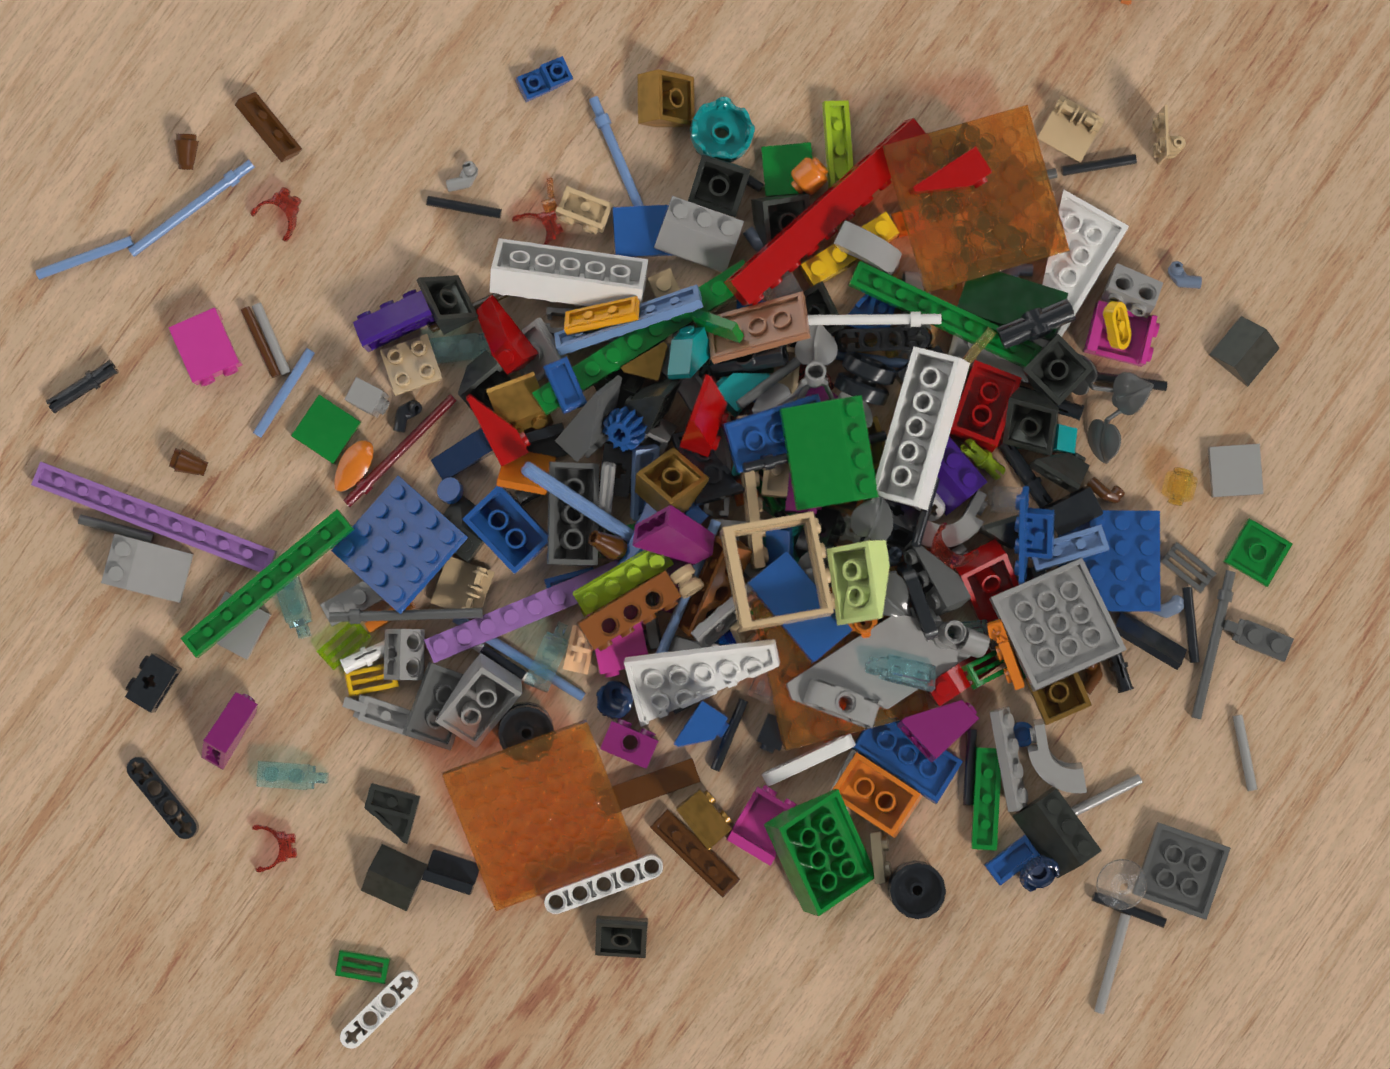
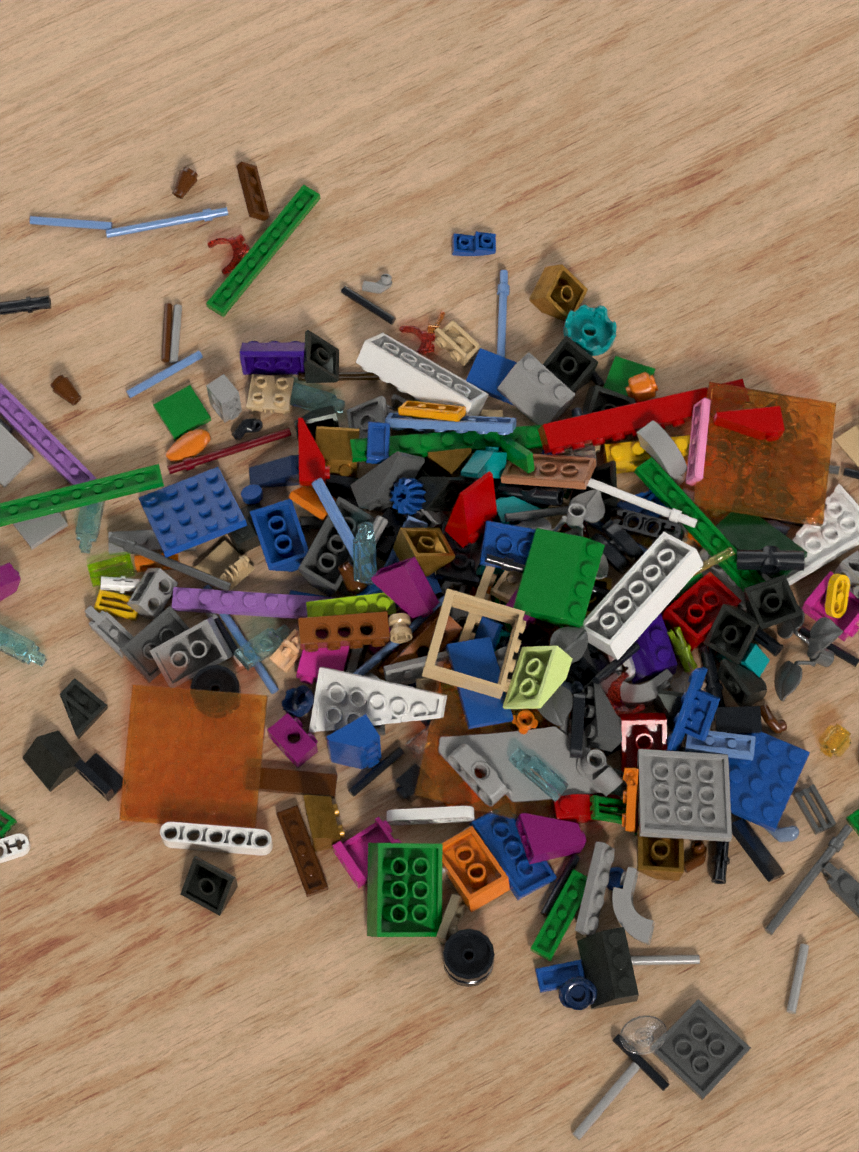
camera: 30 degrees right, 20 degrees down
(205, 347) = (124, 316): dark pink panel -> none
(317, 194) = (263, 251): none -> green plate
(504, 337) = (350, 401): red slope -> none
(610, 515) = (364, 553): none -> clear light blue hinge
(837, 139) = (678, 370): lime plate -> none
(901, 219) = (698, 441): none -> bright pink tile
(1190, 625) = (796, 856): black bar -> none

